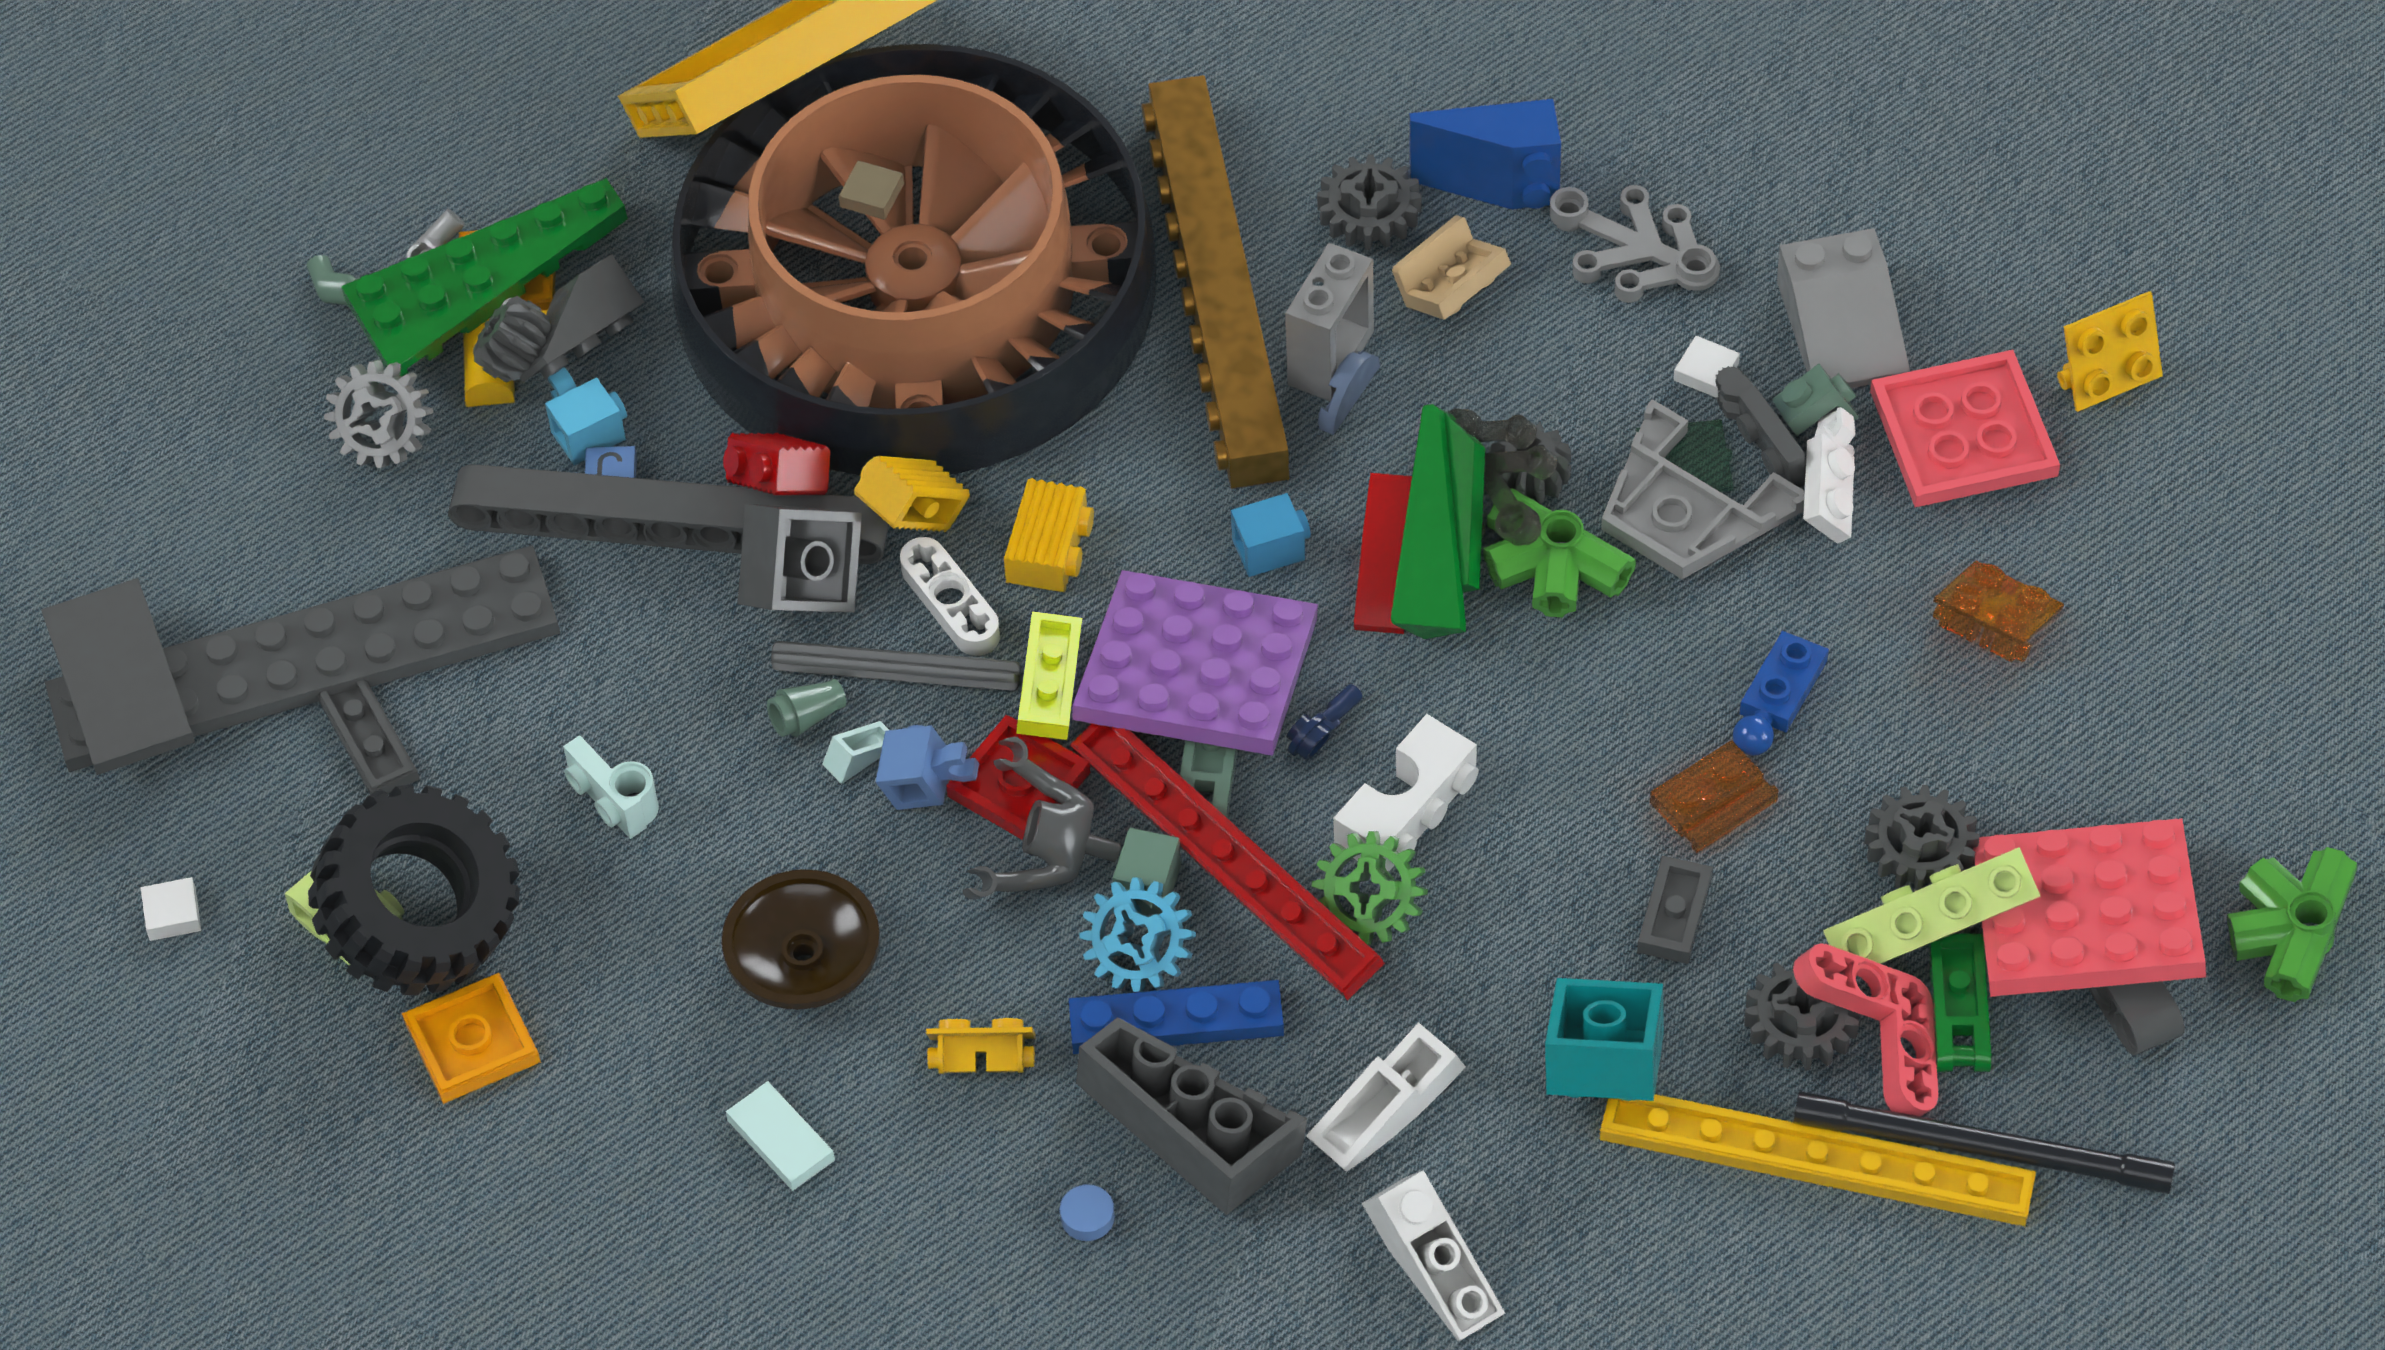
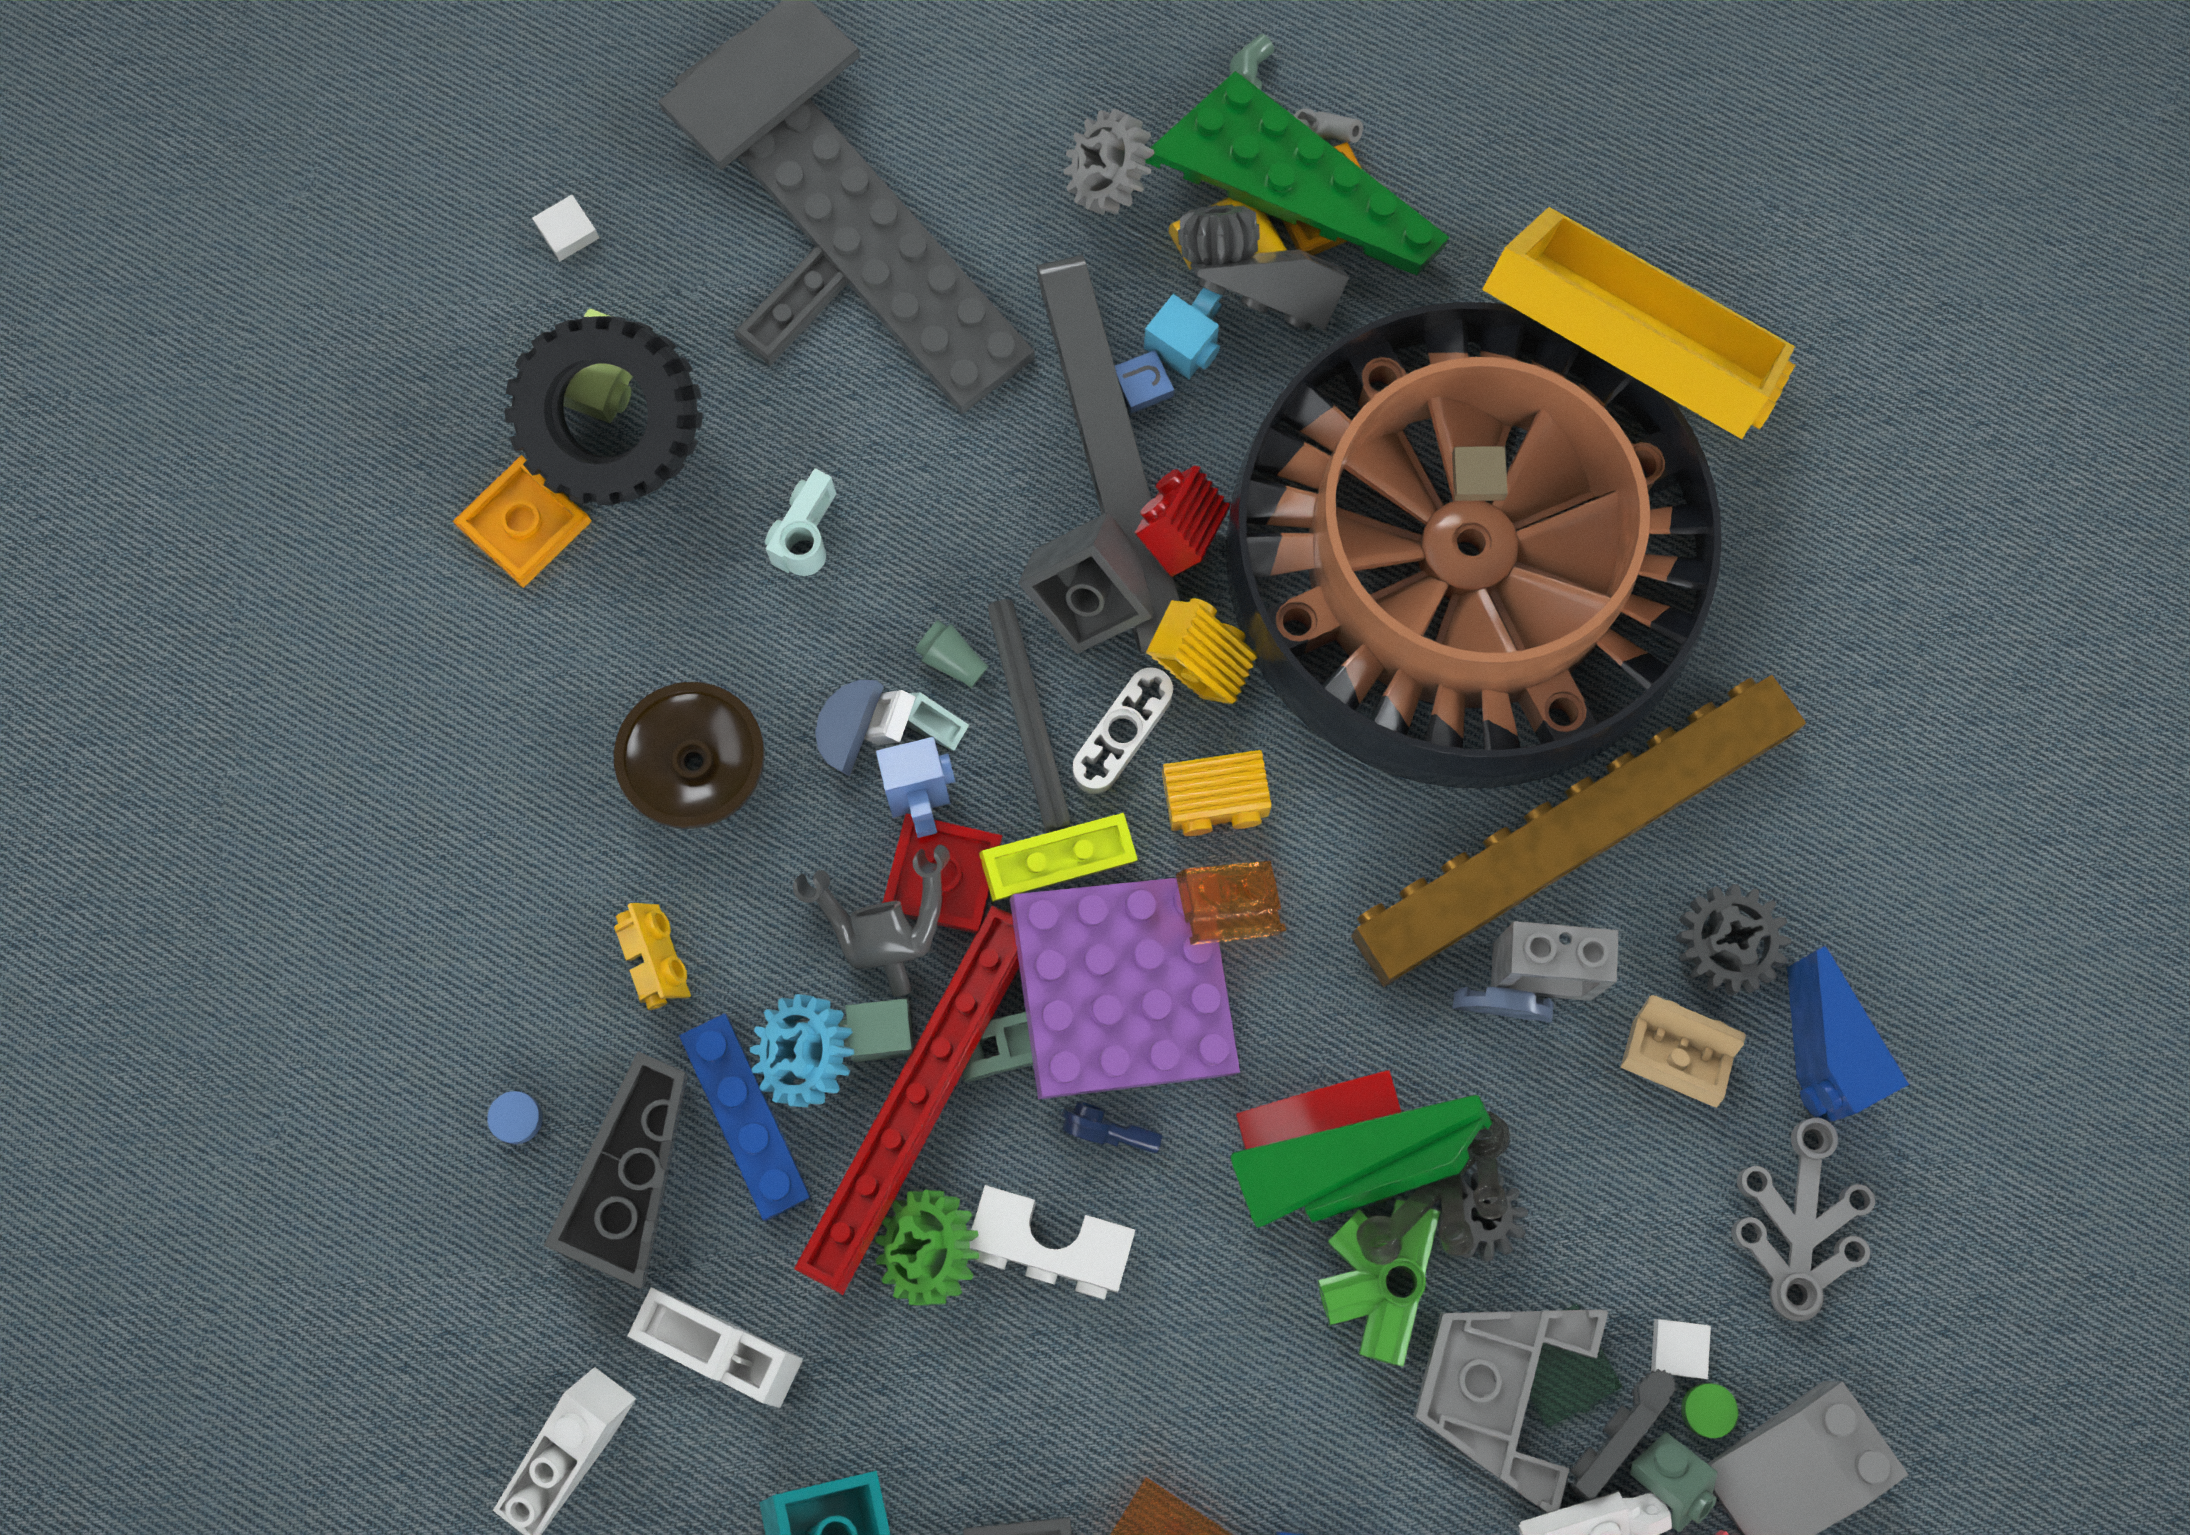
camera: 65 degrees right, 20 degrees up
(780, 1136) = (507, 819): light aqua tile -> none
(828, 814) = (845, 723): none -> sand blue tile
(843, 772) = (890, 717): none -> white tile
(1157, 554) = (1230, 902): none -> clear orange plate
(1269, 534) = (1299, 996): dark azure brick -> none
(1767, 364) = (1709, 1410): none -> bright green tile

